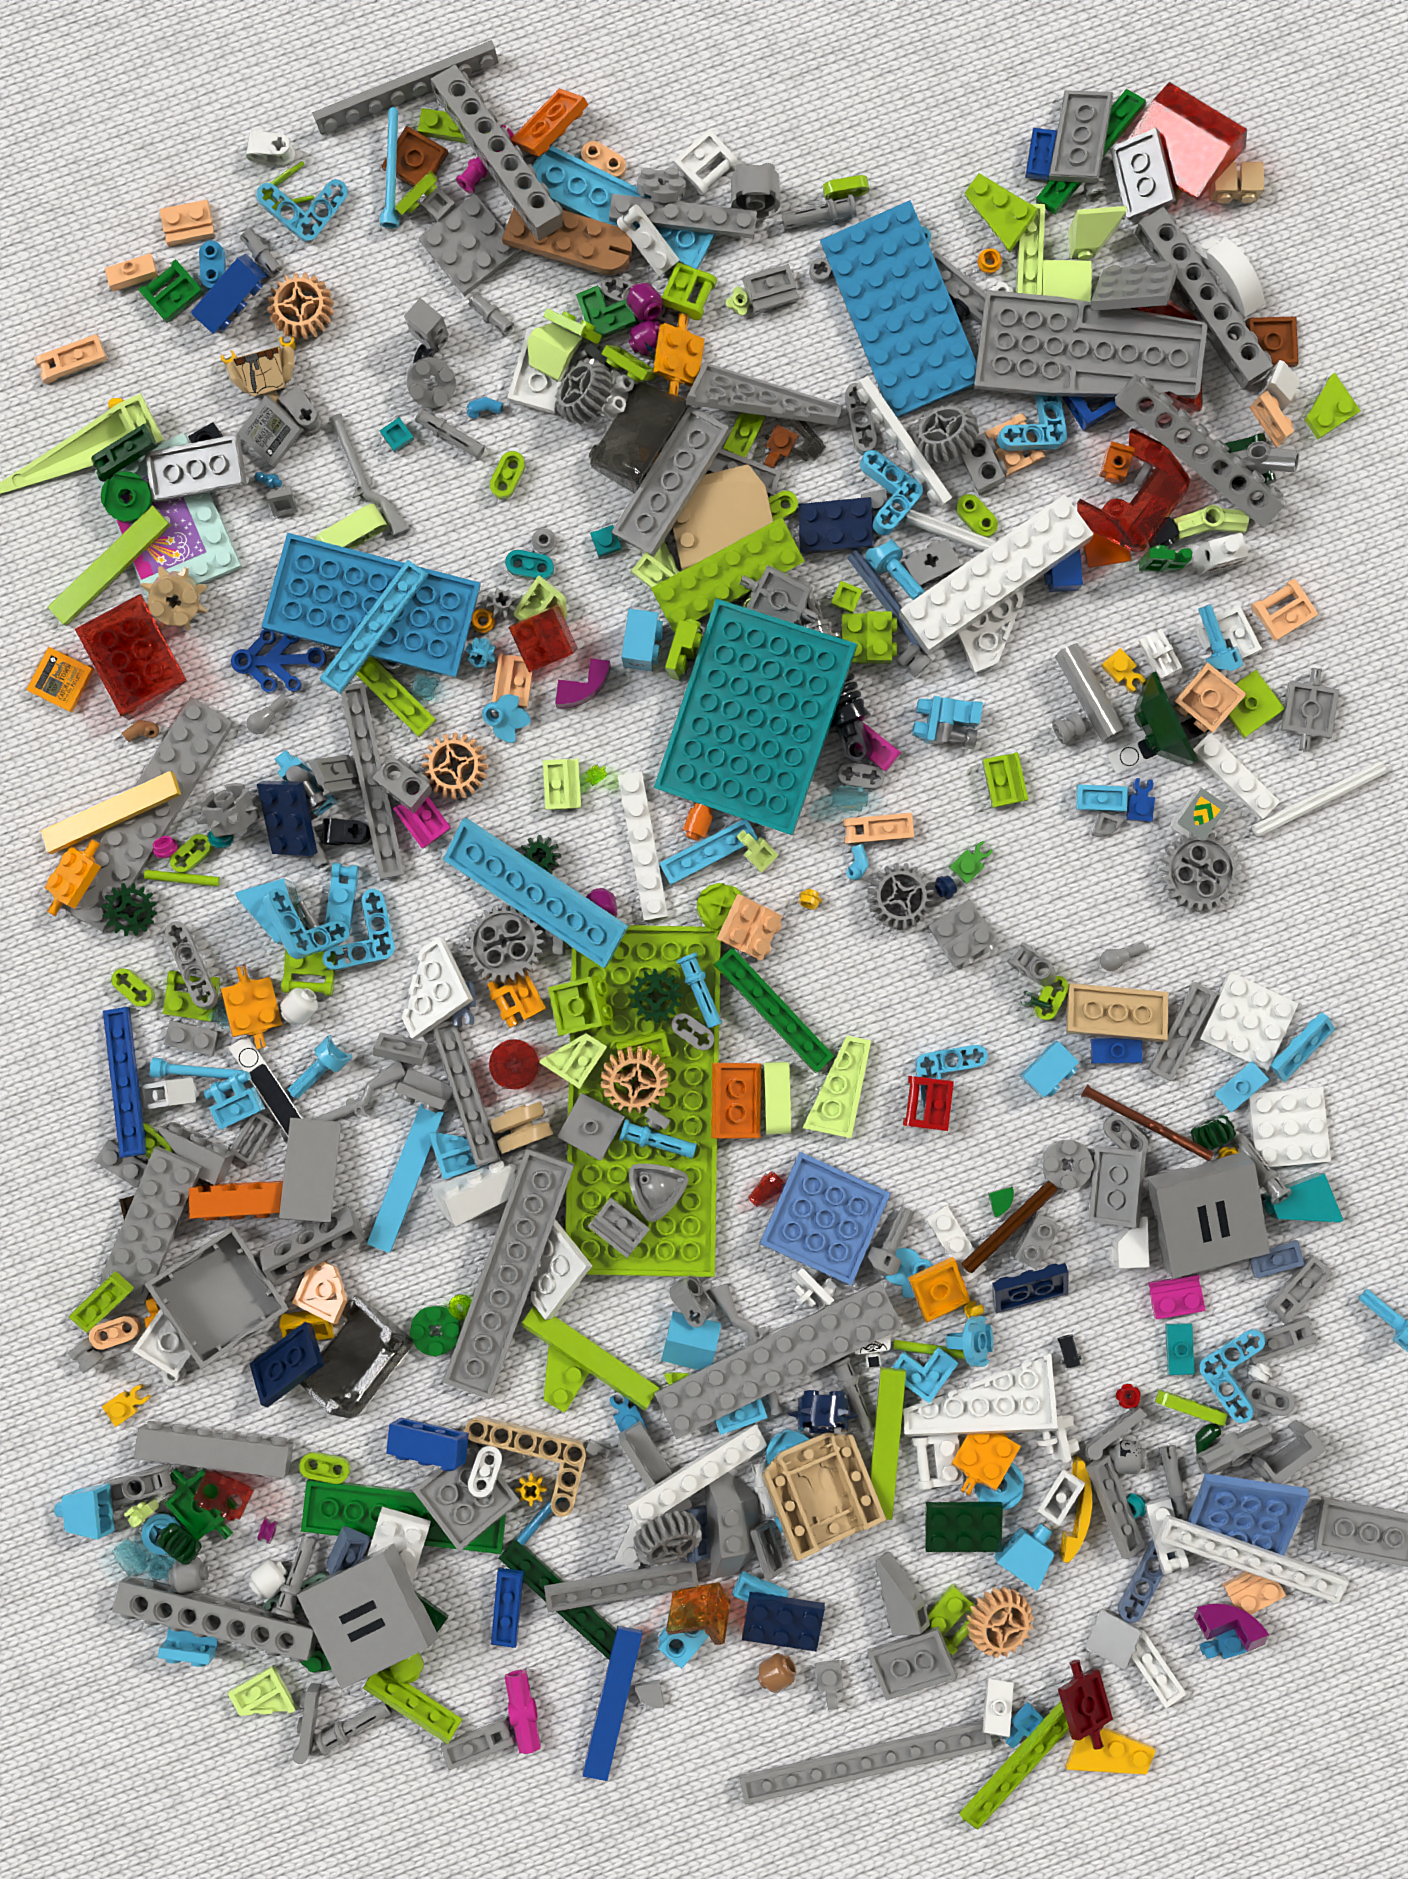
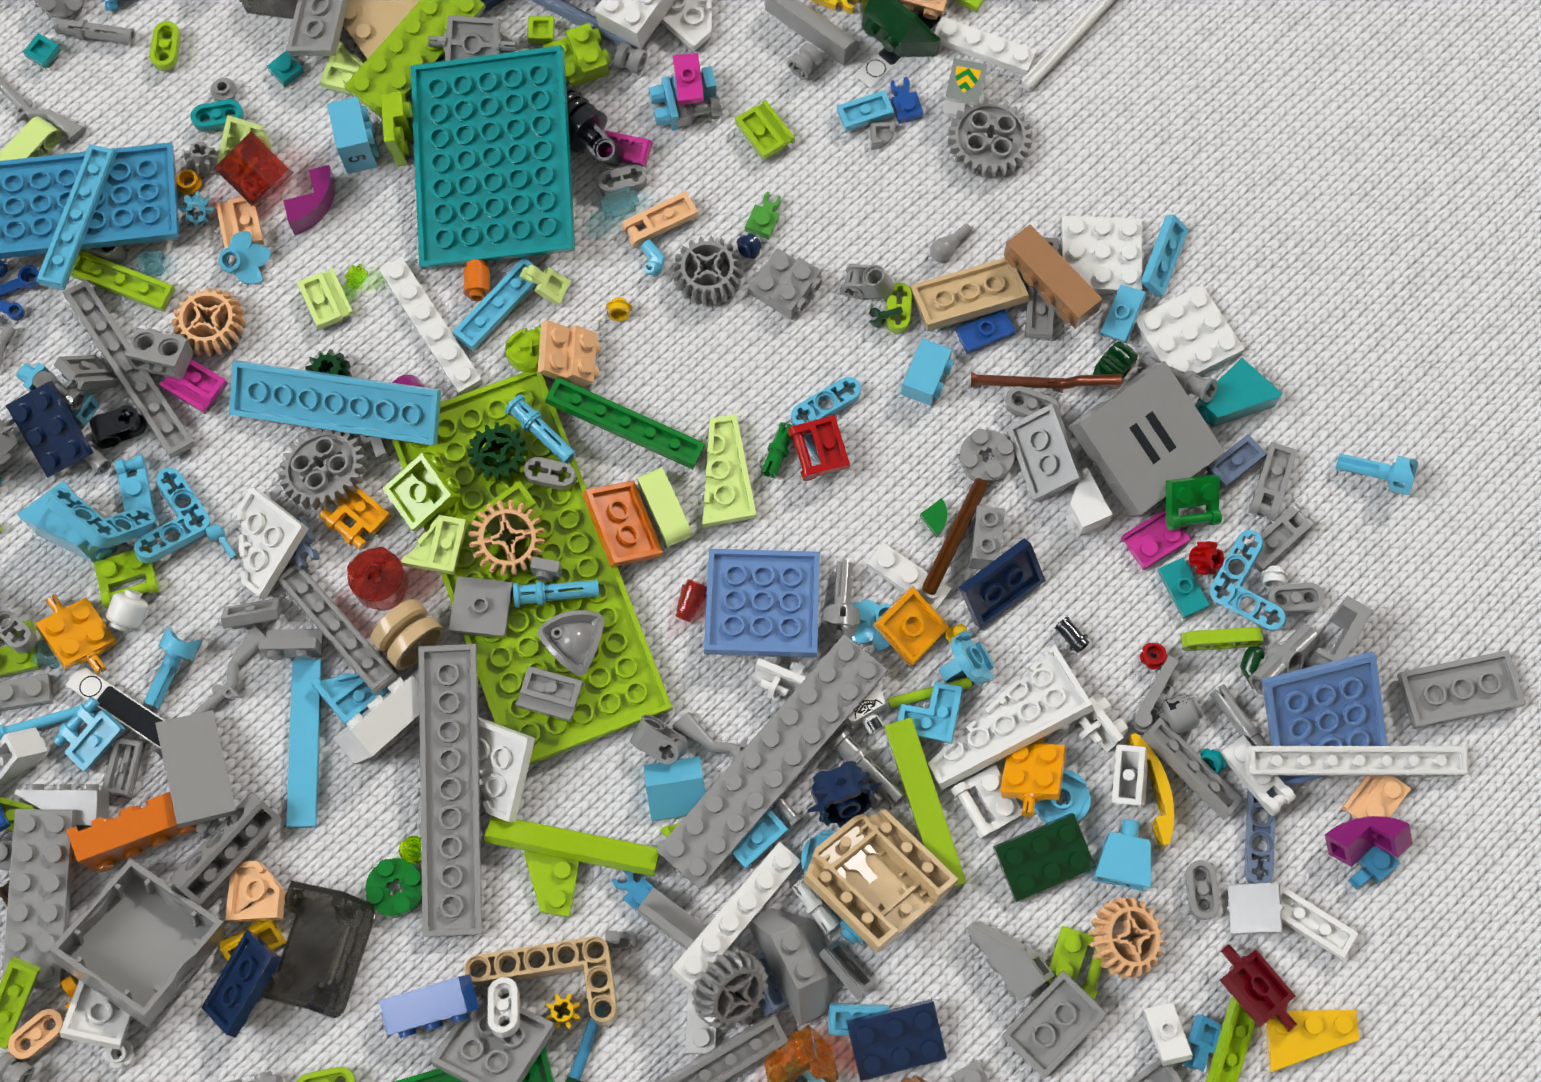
camera: 20 degrees left, 15 degrees down
(396, 963) = (215, 533): none -> medium azure hand
(893, 1085) = (777, 451): none -> green pin
(957, 708) = (688, 79): none -> dark pink plate
(1078, 1604) = (1202, 890): none -> light grey plate
(1194, 1034) = (1052, 277): none -> medium nougat brick
(1211, 1334) = (1206, 558): none -> red gear
(1222, 1276) = (1192, 493): none -> green plate

